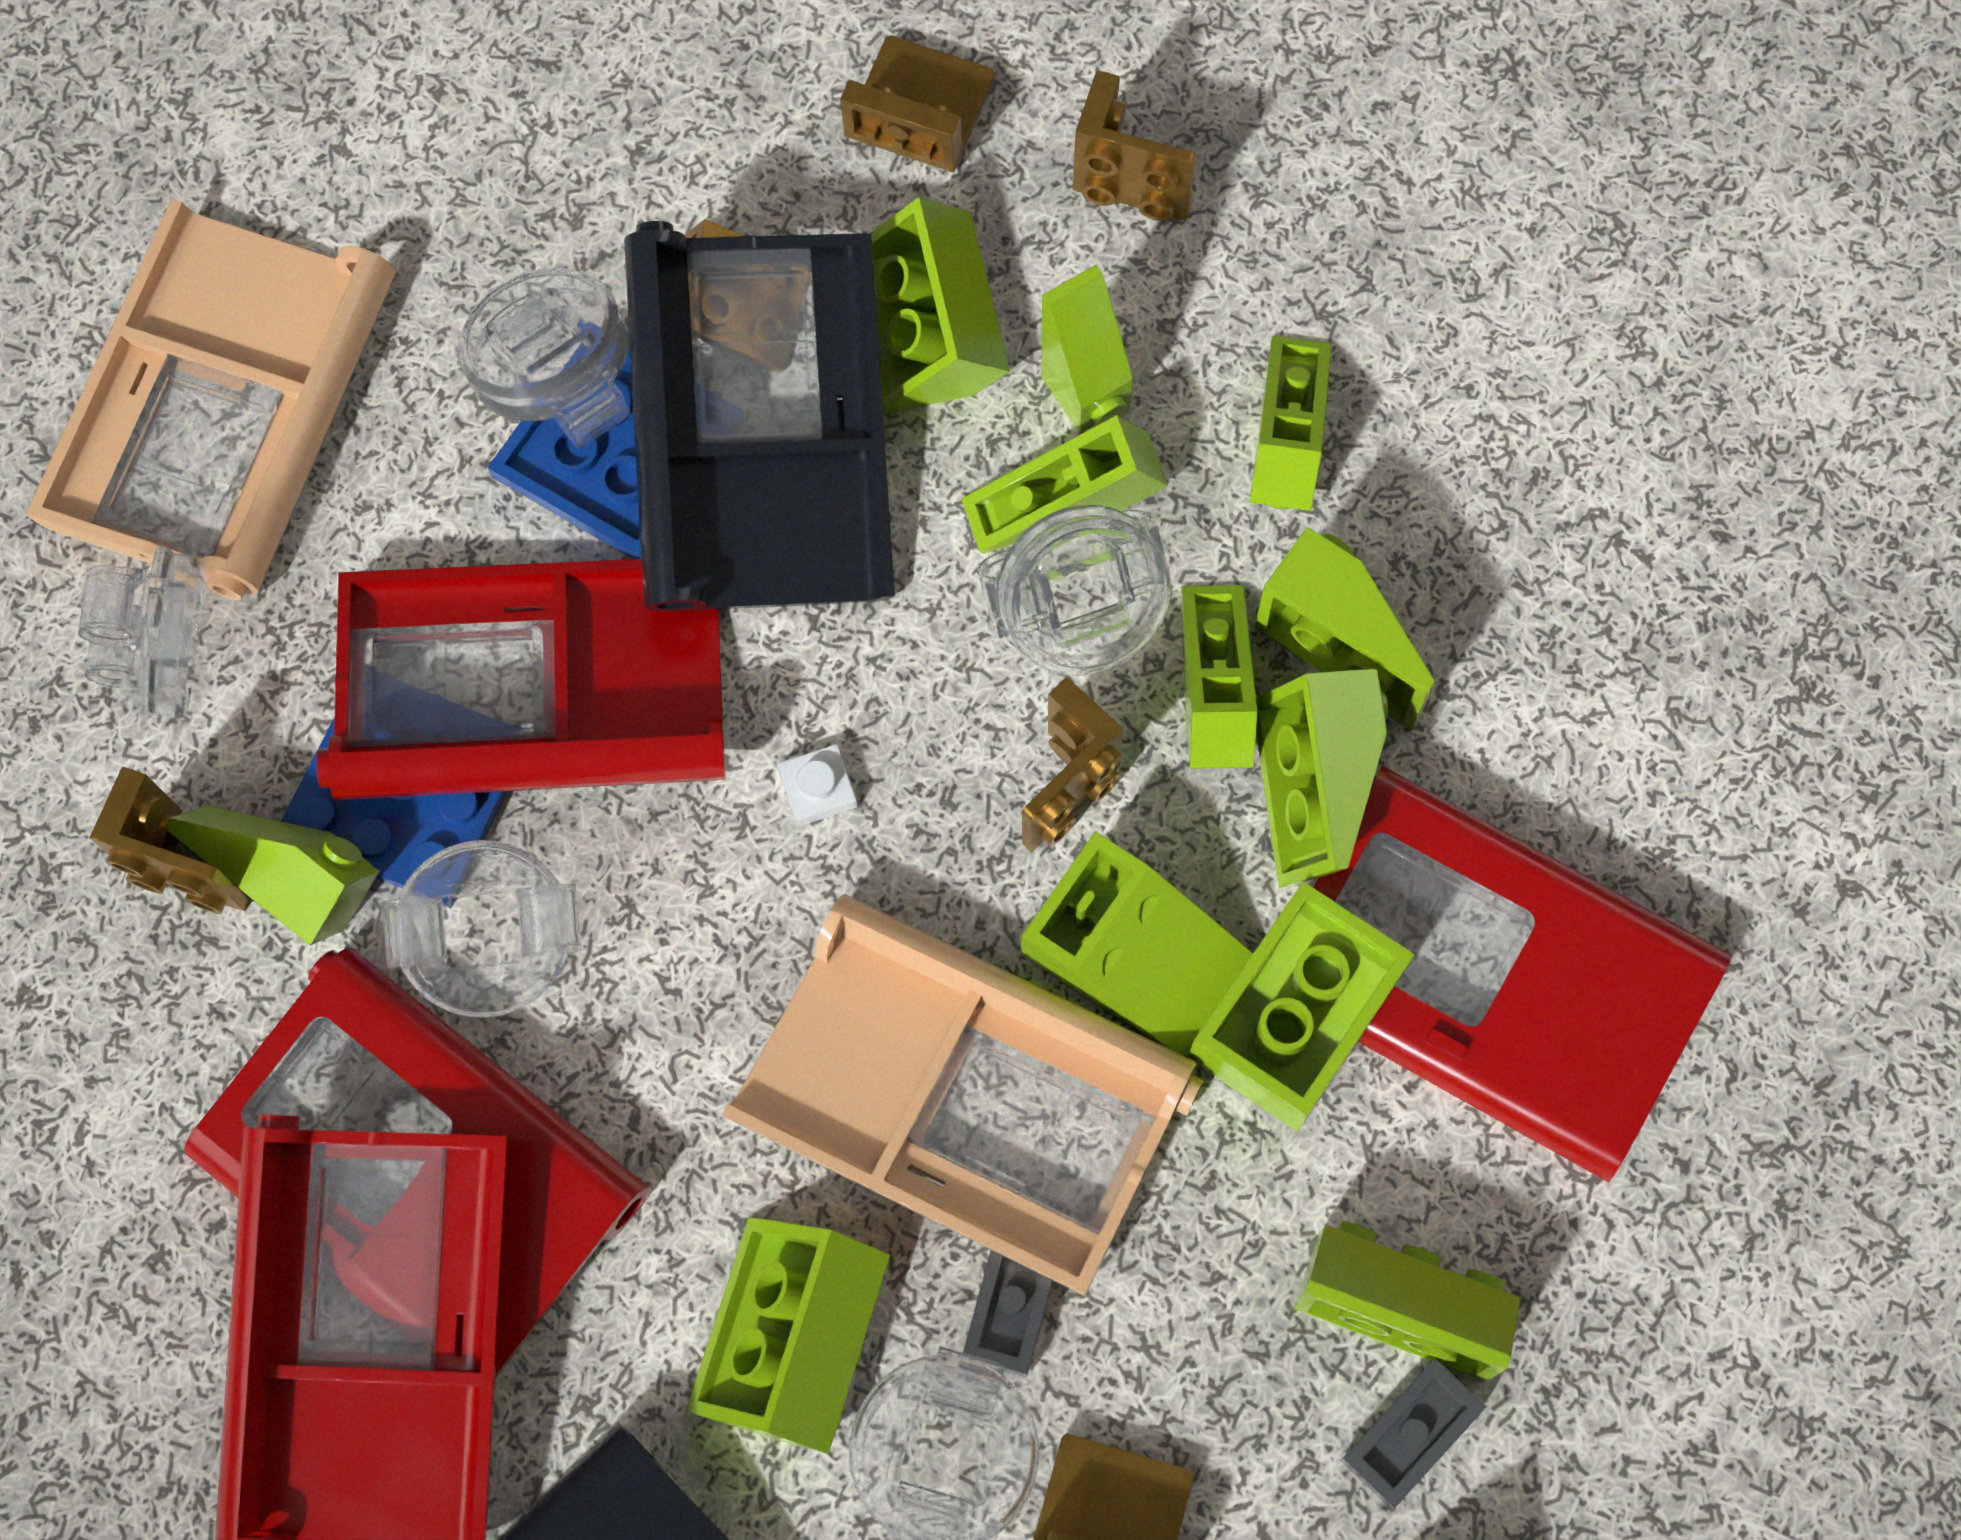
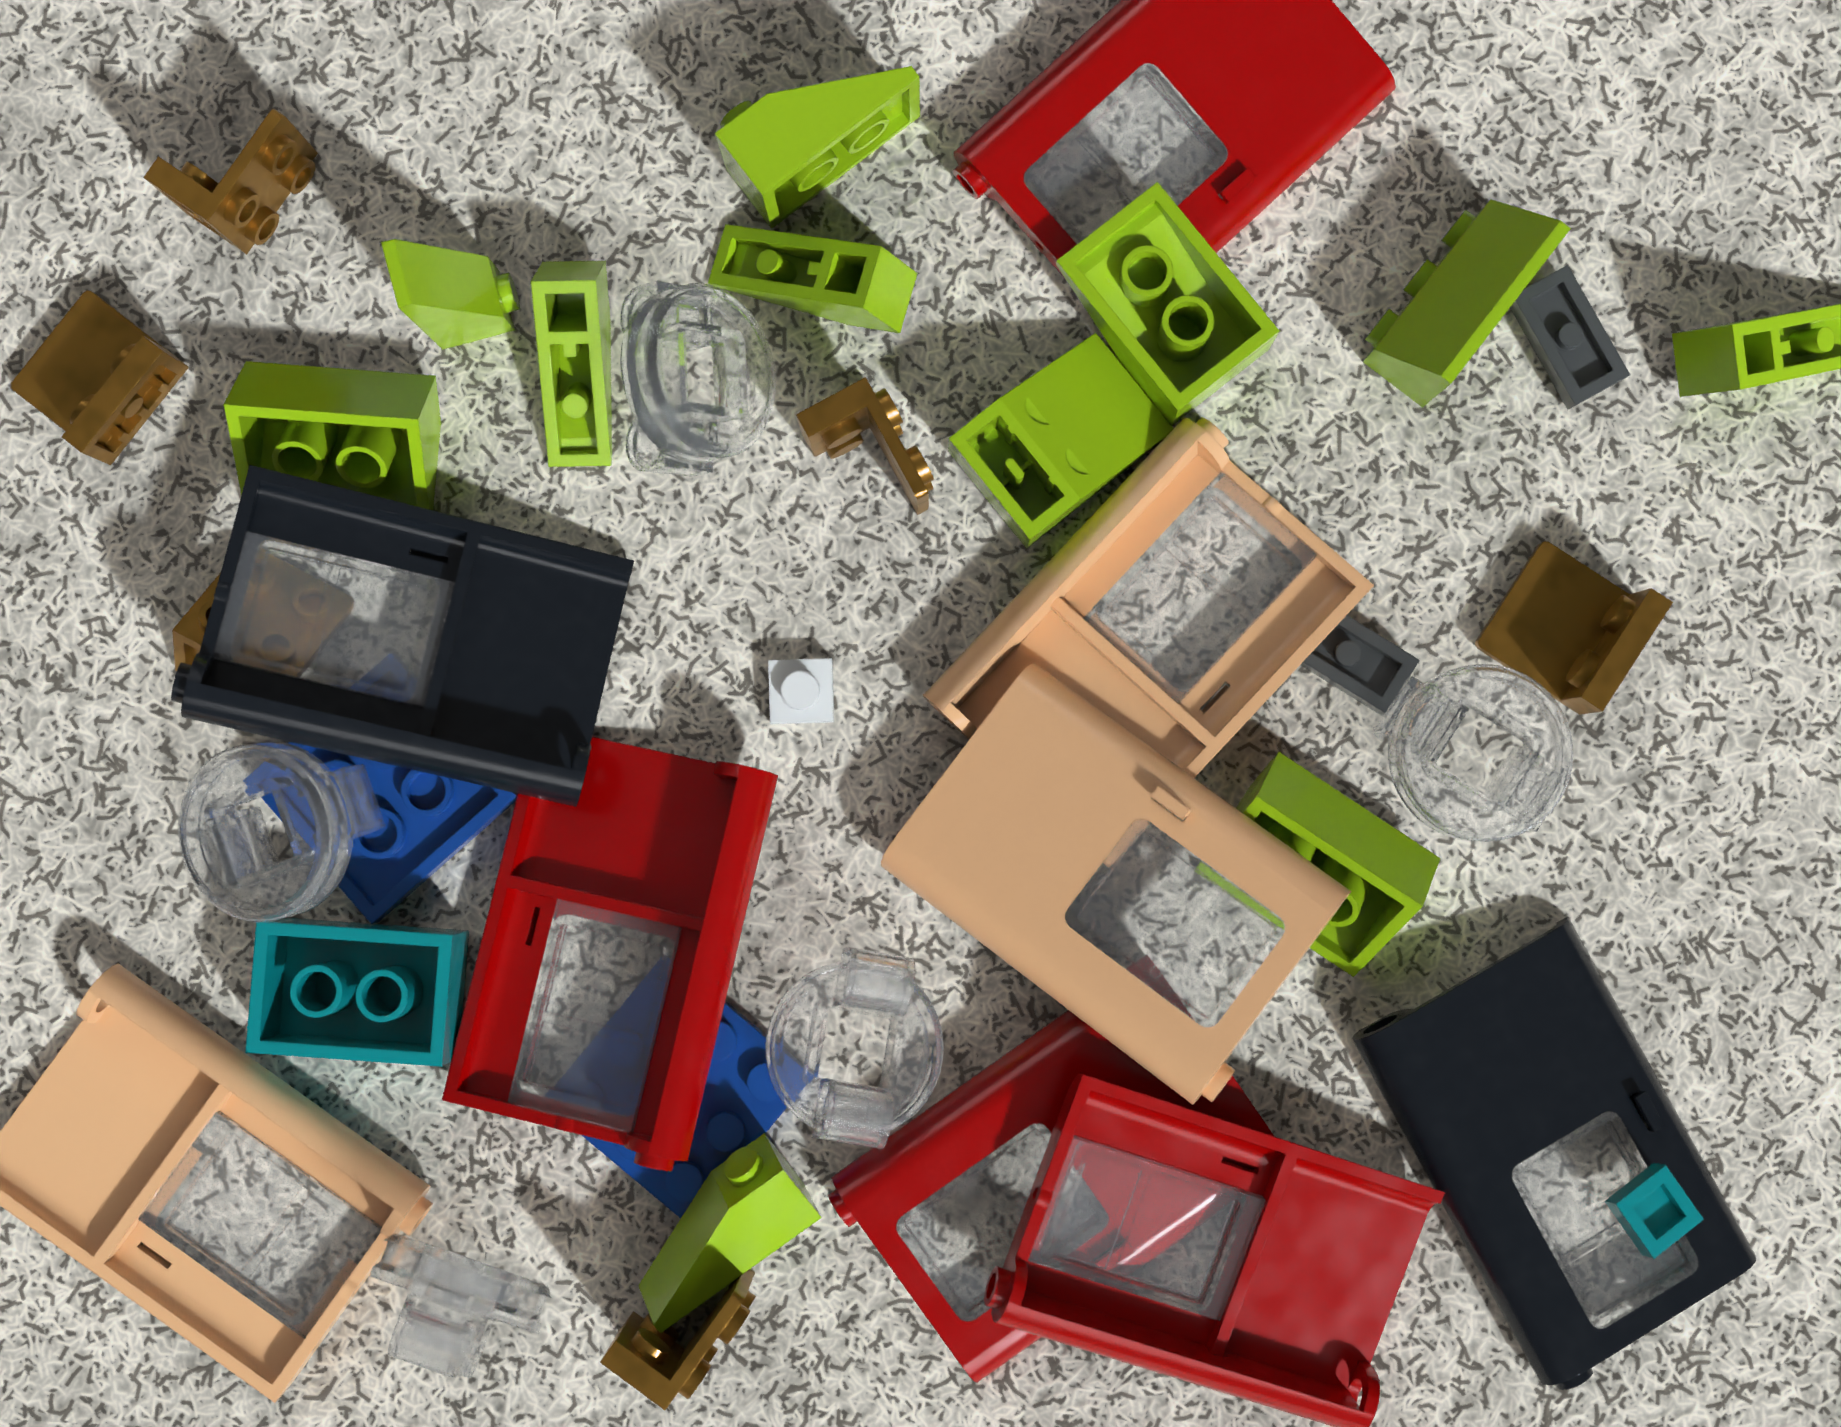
camera: 70 degrees left, 15 degrees up
(421, 470) = (356, 991): none -> teal brick
(680, 1139) = (1103, 896): none -> light nougat piece
(1291, 424) = (577, 118): lime slope -> none
(1318, 766) = (952, 208): lime slope -> none

